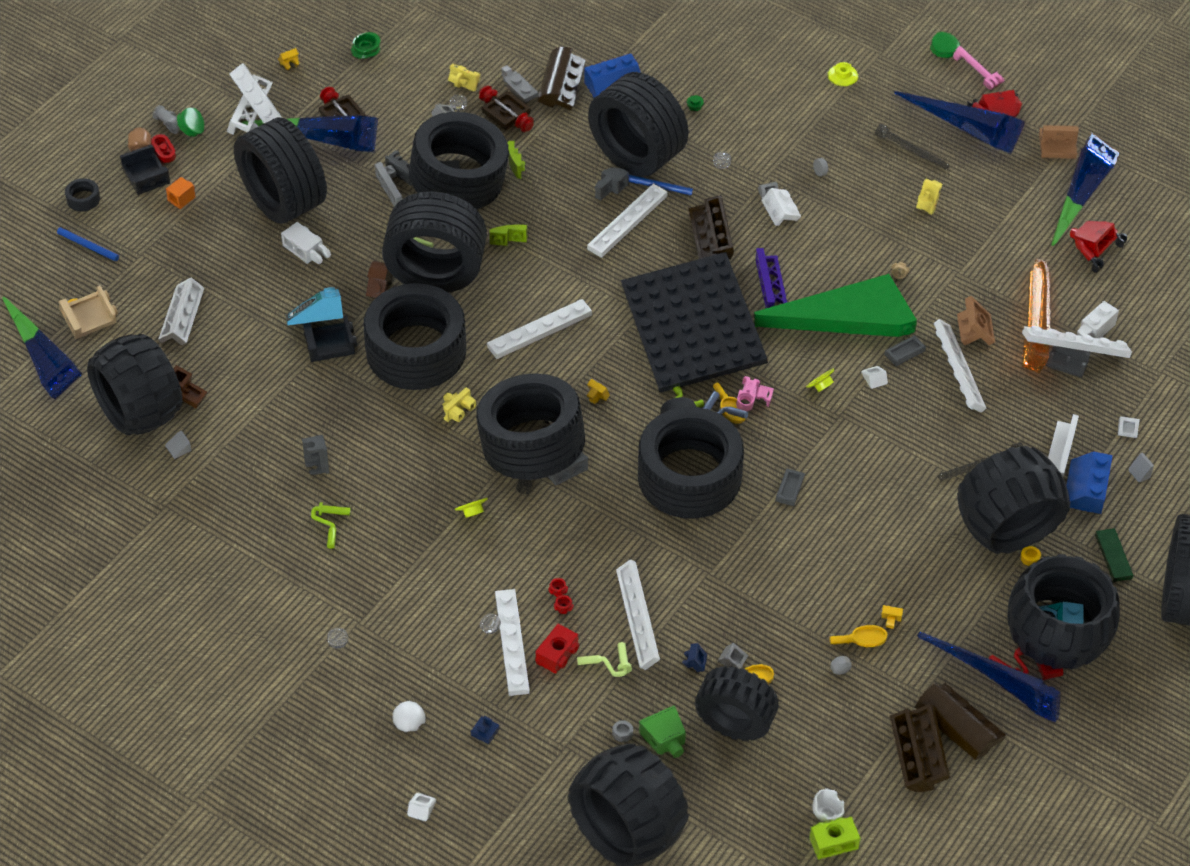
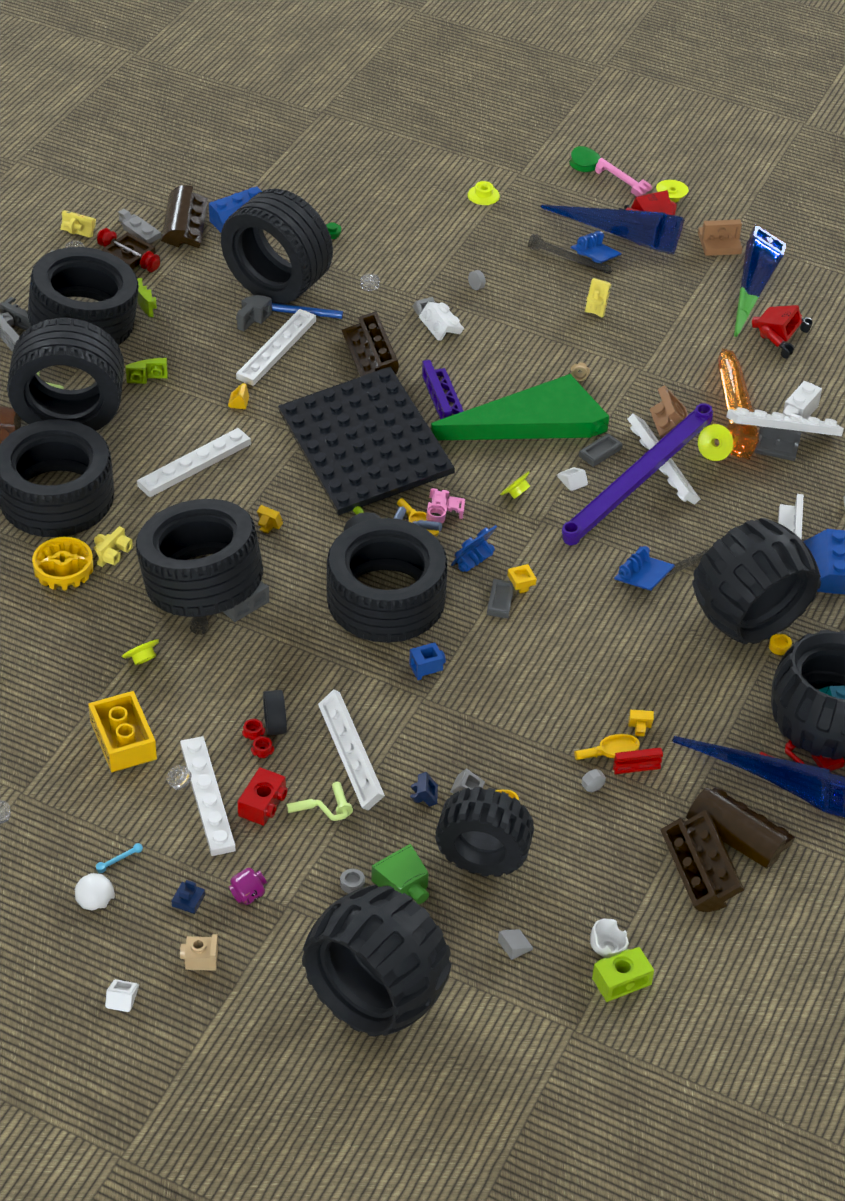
camera: 10 degrees left, 5 degrees down
(414, 412) = (62, 562): none -> yellow gear
(417, 695) = (101, 867): none -> medium azure hinge
(447, 578) = (122, 731): none -> yellow brick
(488, 779) = (200, 953): none -> tan brick
(534, 726) = (247, 886): none -> magenta head
(577, 575) = (274, 712): none -> black tyre
(587, 268) = (239, 397): none -> yellow slope
(715, 539) = (426, 660): none -> blue brick
(749, 800) = (514, 943): none -> light grey slope
(773, 440) = (474, 550): none -> blue hinge
(811, 470) = (522, 578): none -> yellow tile
(882, 651) = (637, 760): none -> red tile
(921, 473) = (643, 570): none -> blue hinge
(932, 380) = (636, 474): none -> dark purple piece
(936, 143) = (592, 247): none -> blue hinge
(1003, 356) = (707, 445): none -> neon yellow piece
(1022, 85) = (675, 189): none -> neon yellow piece

